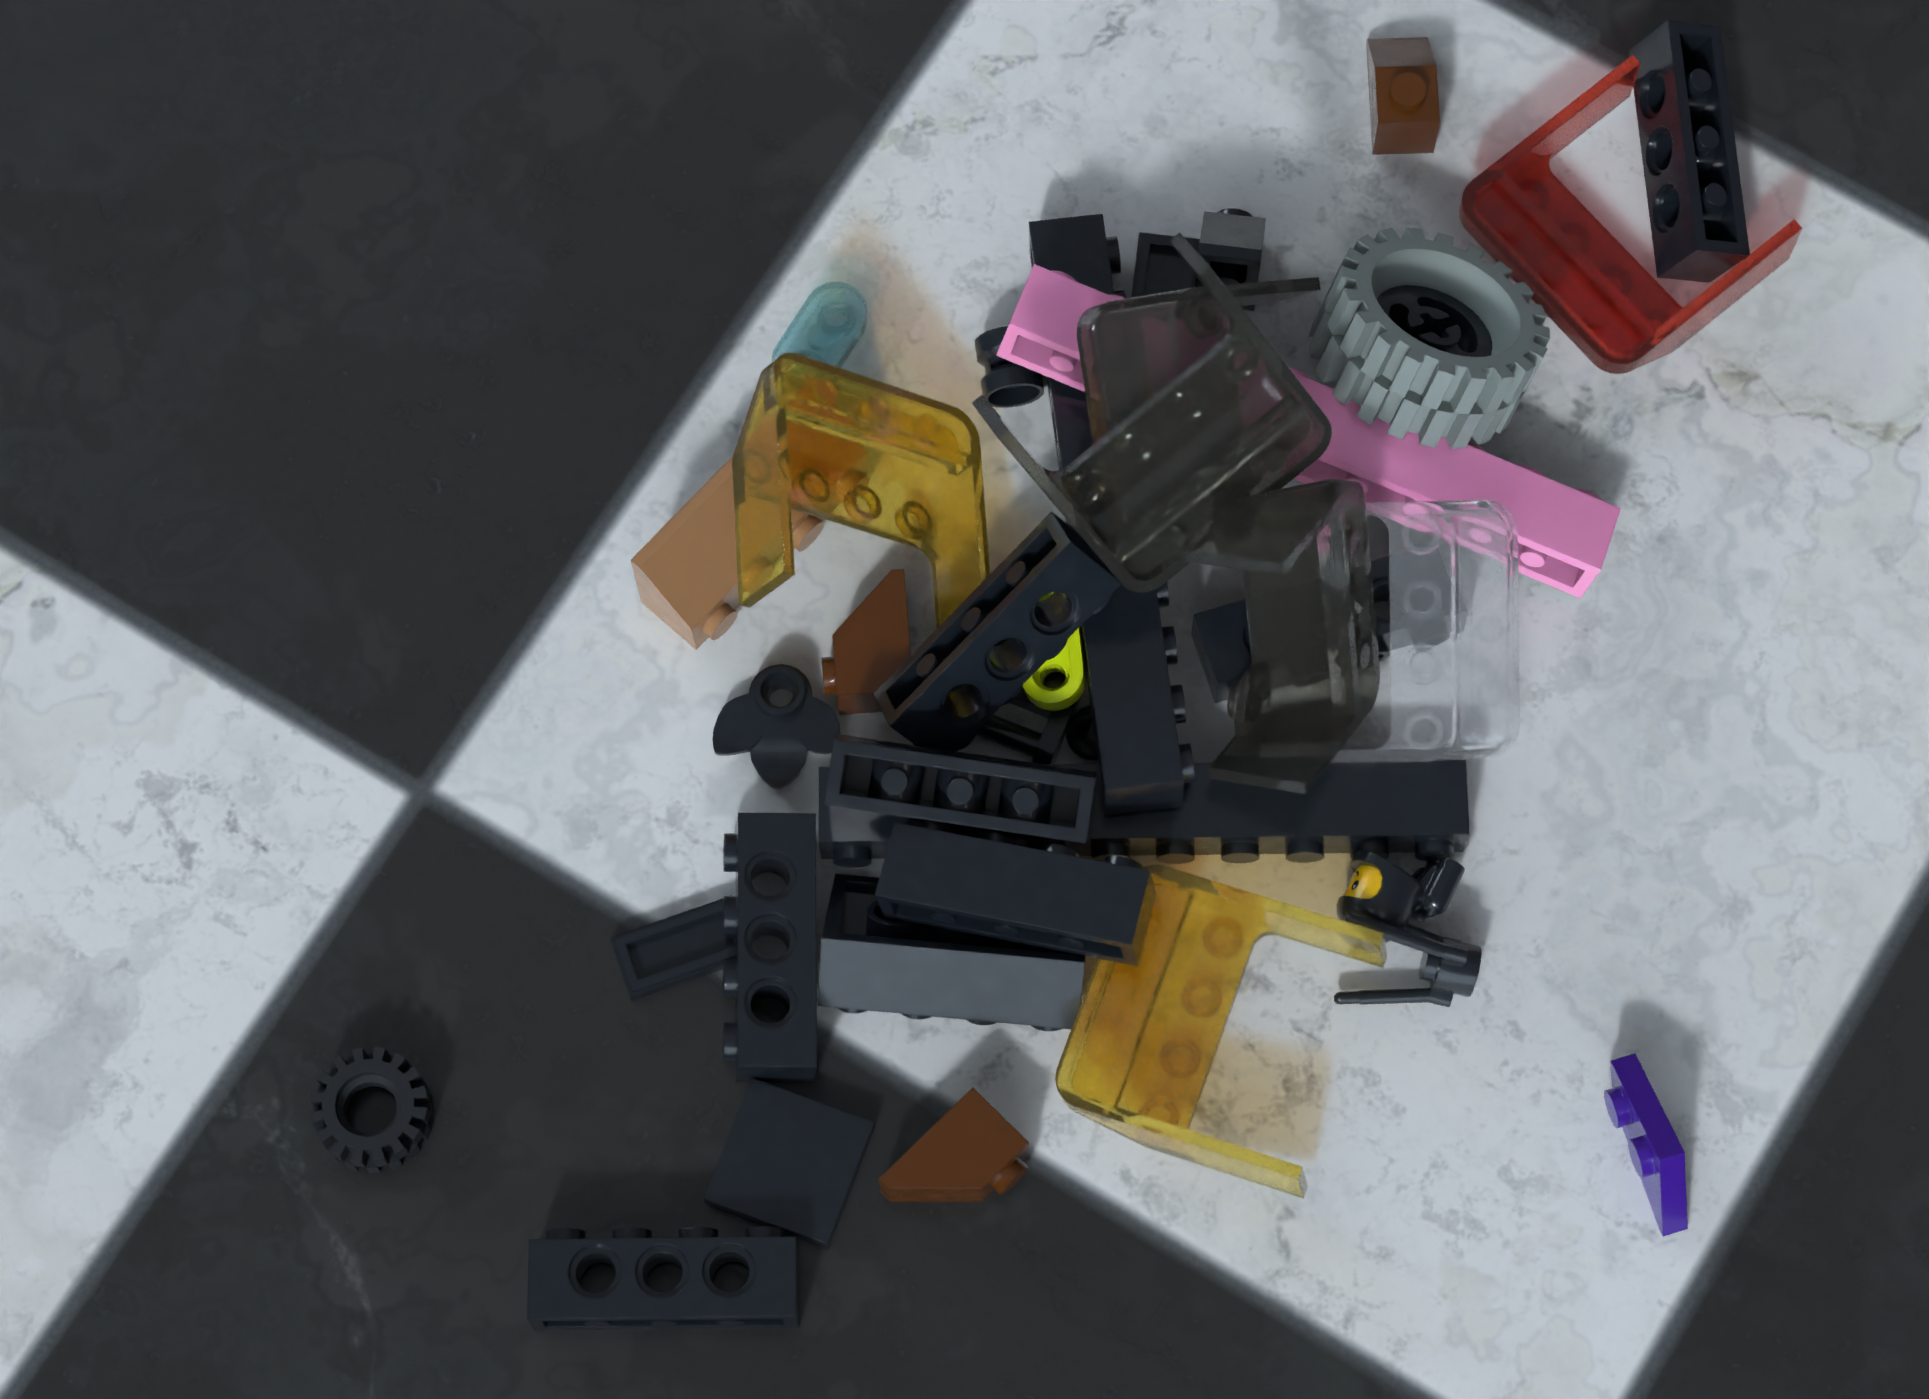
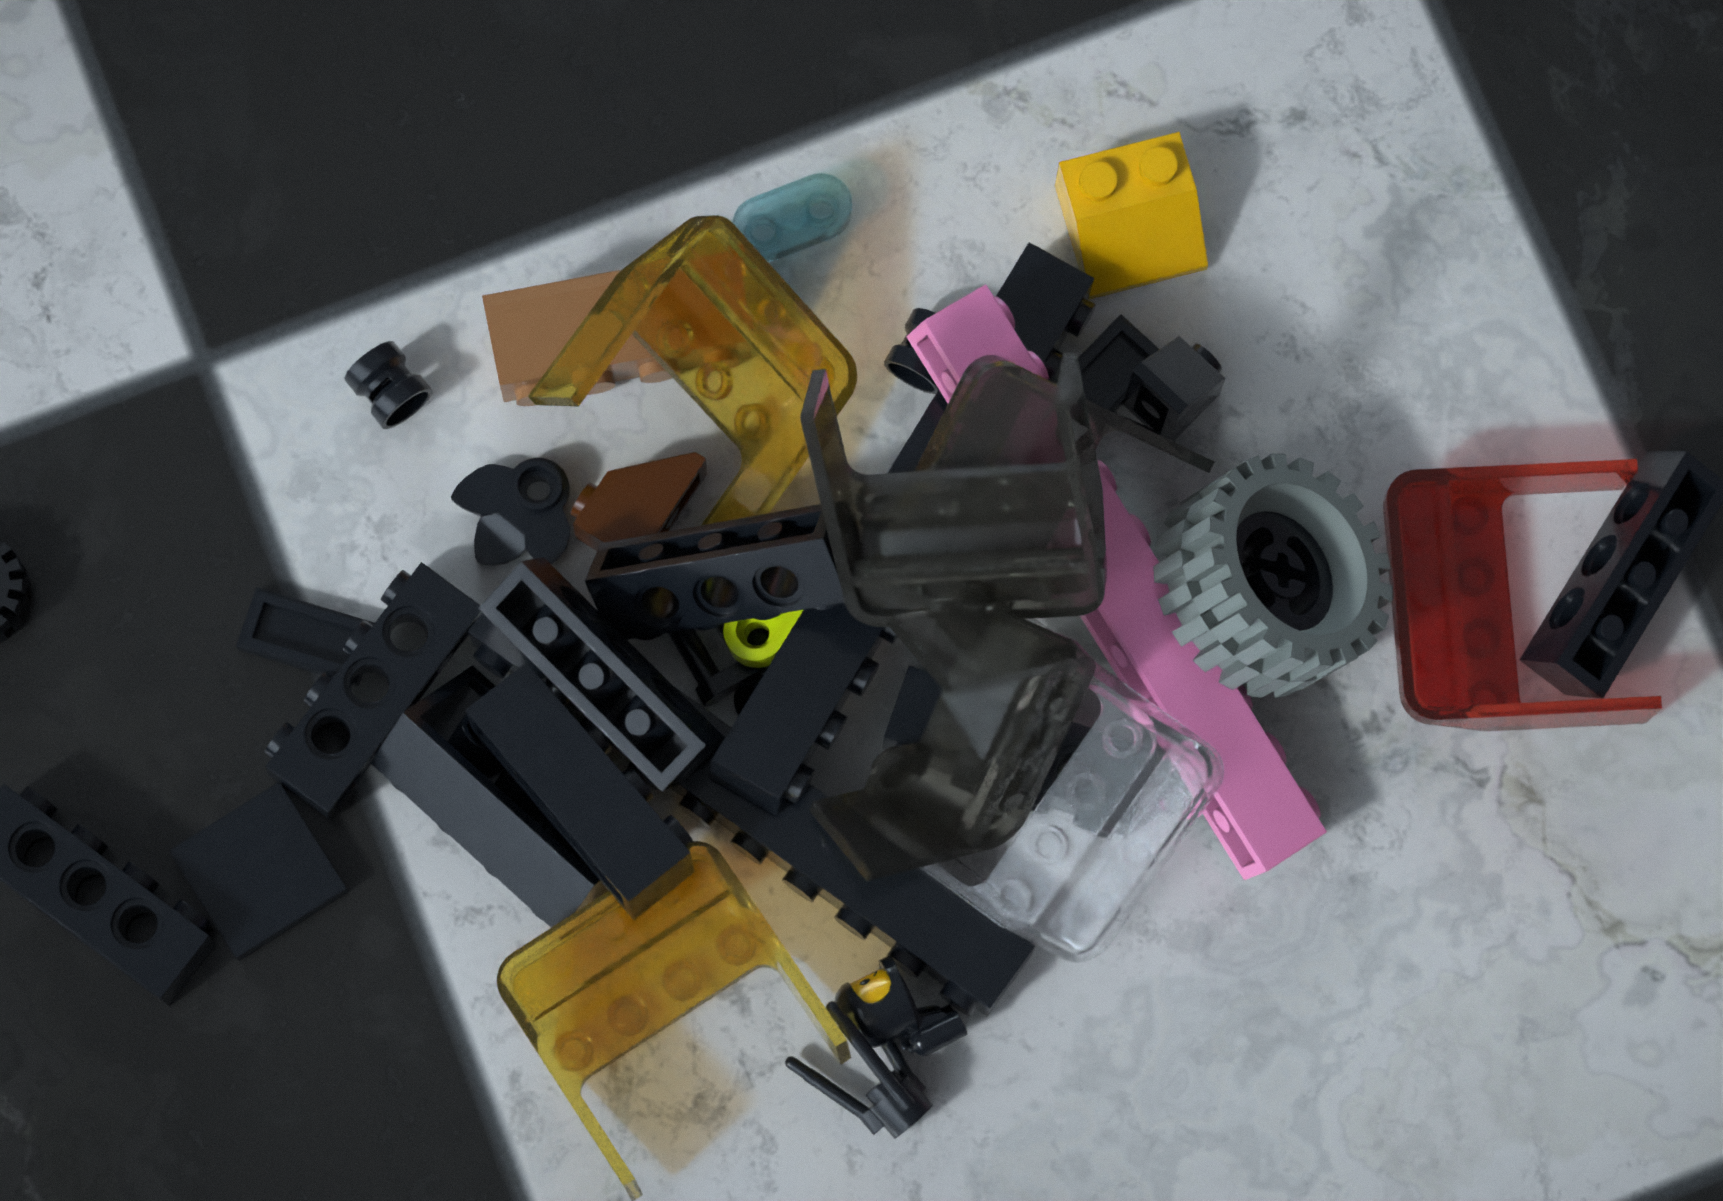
camera: 30 degrees right, 5 degrees up
(594, 698) = (388, 385): none -> black wheel
(960, 1157) = (391, 966): reddish brown slope -> none
(1089, 146) = (1133, 214): none -> yellow slope
(1402, 95) = (1429, 351): reddish brown slope -> none

